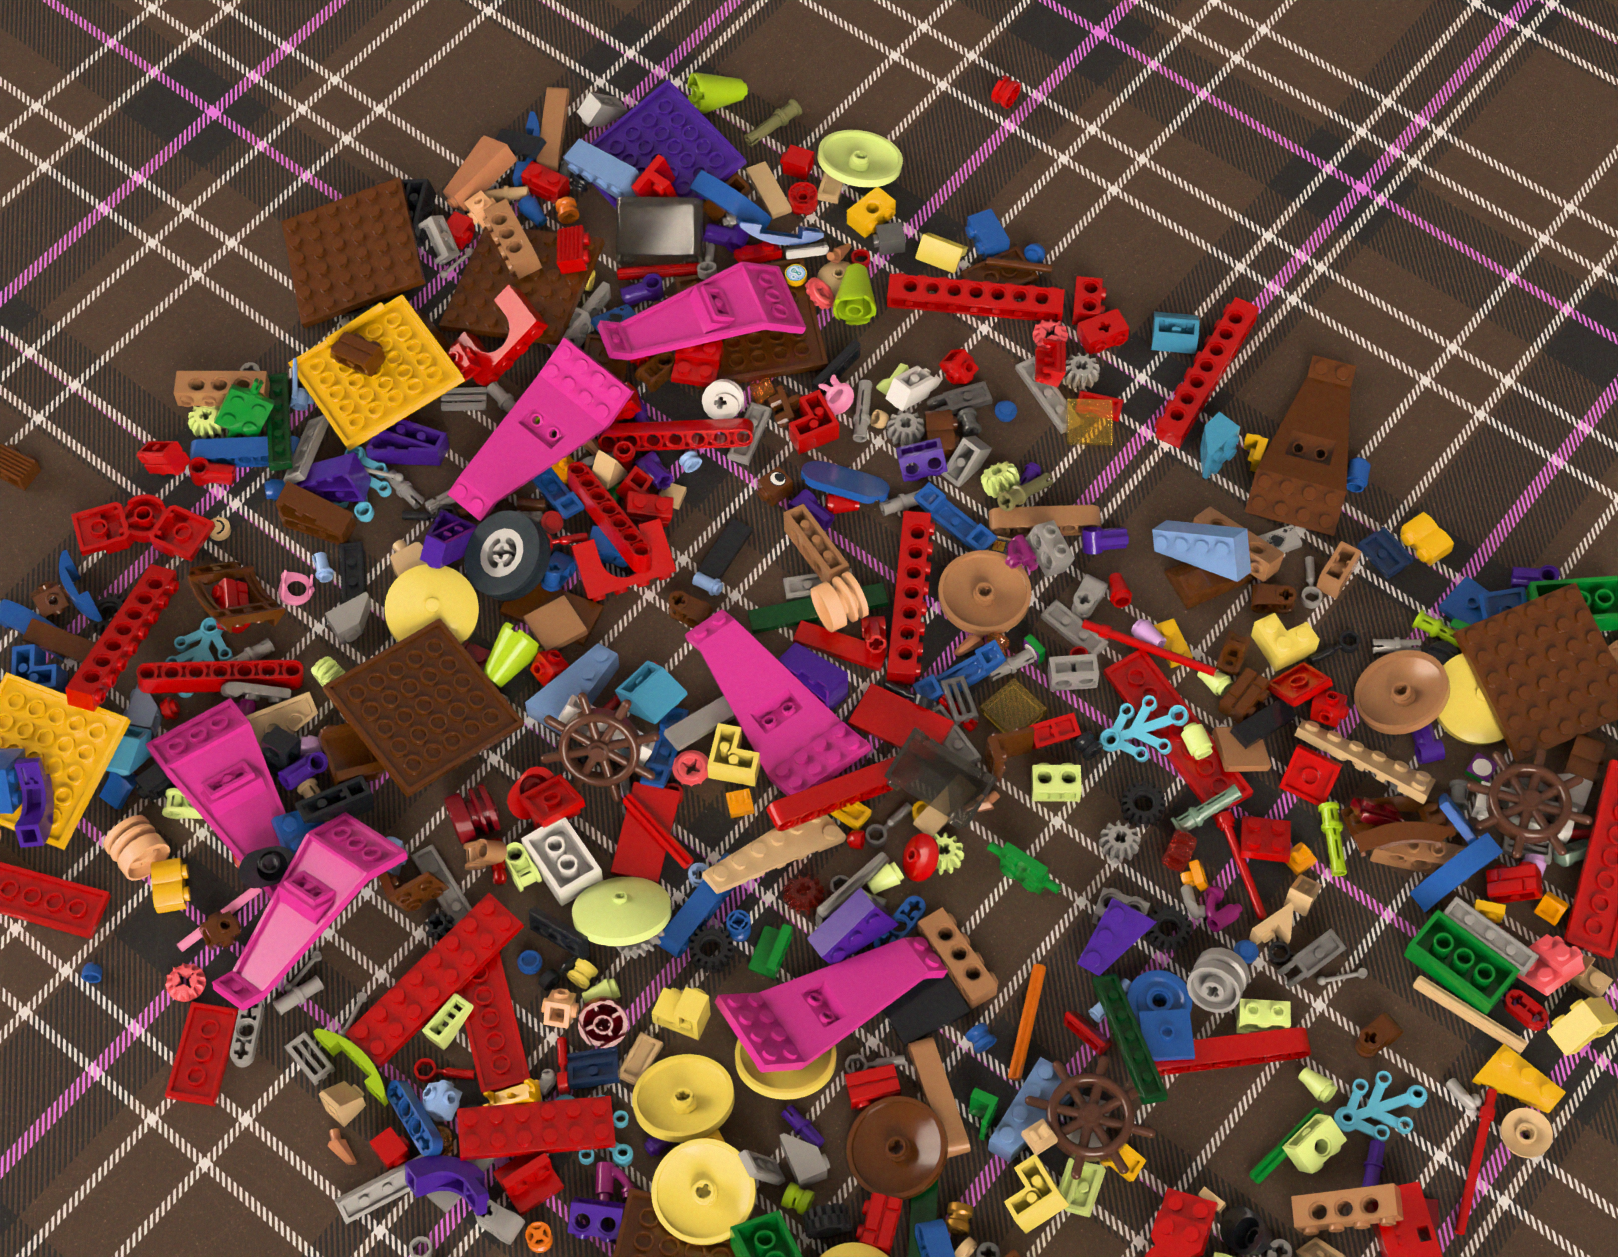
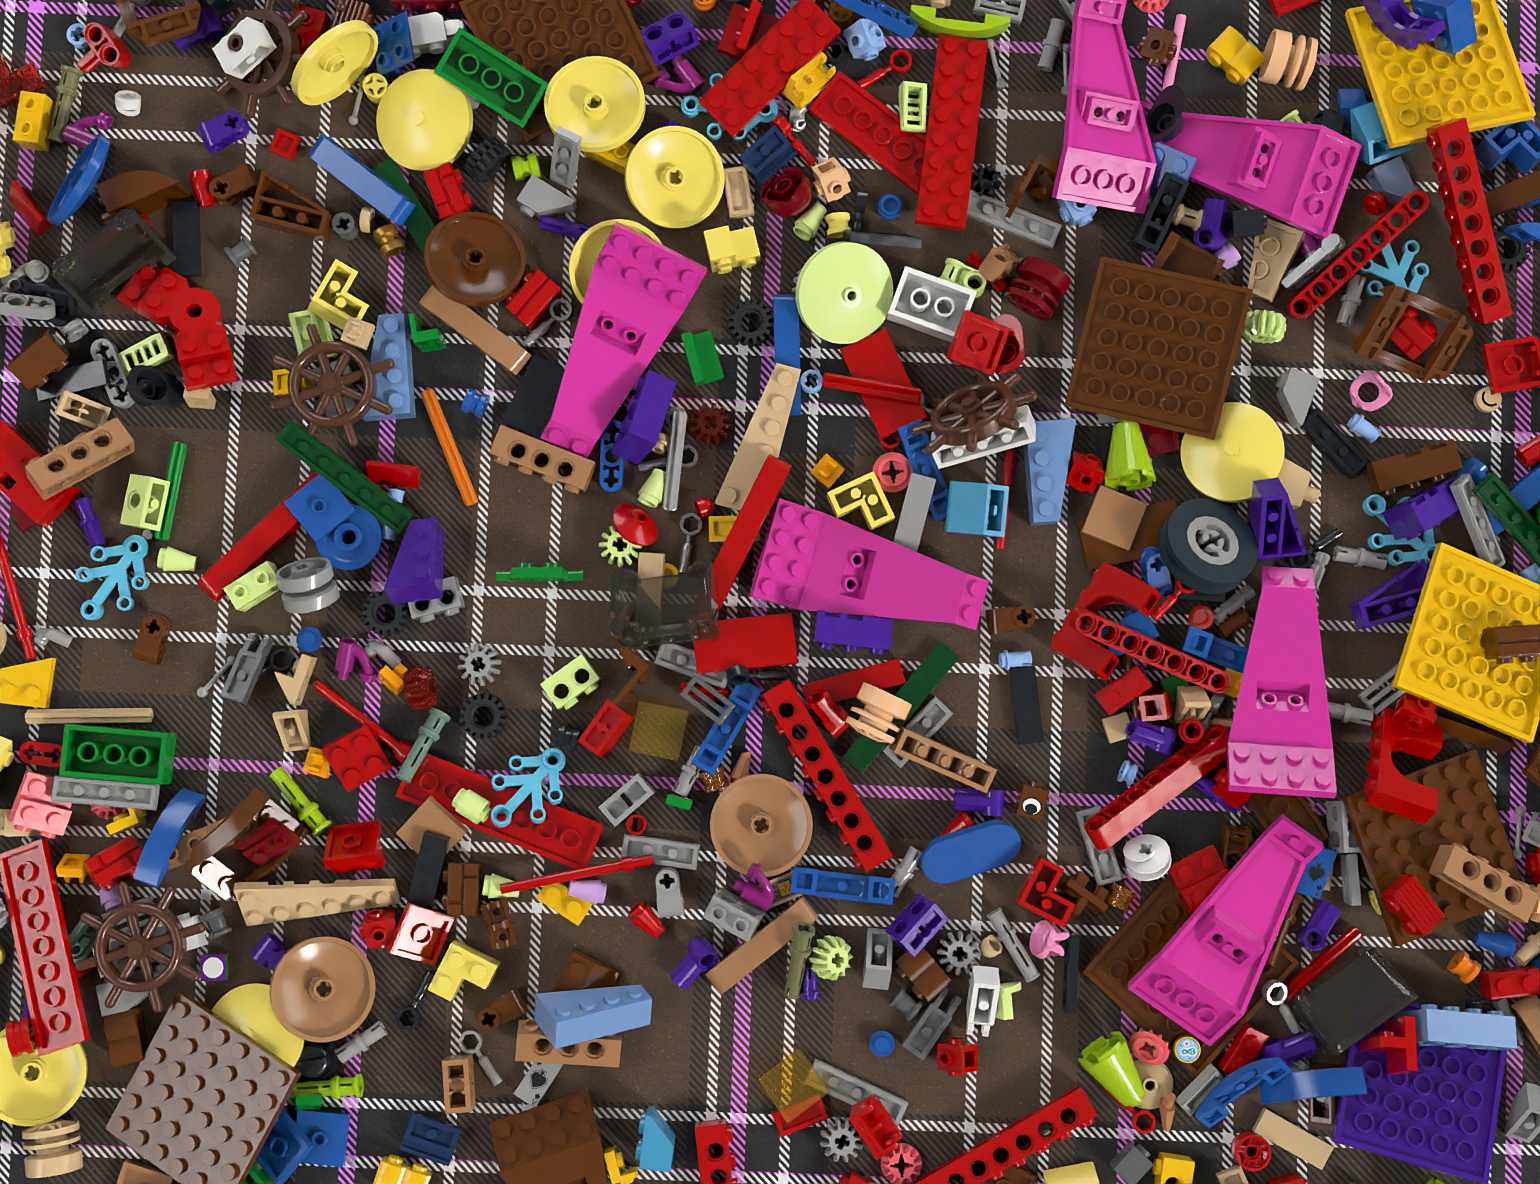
camera: 140 degrees right, 25 degrees up
(398, 477) = (1371, 558): light grey hinge -> none
(738, 931) = (745, 361): blue wheel -> none
(1457, 818) = (197, 889): blue tile -> none

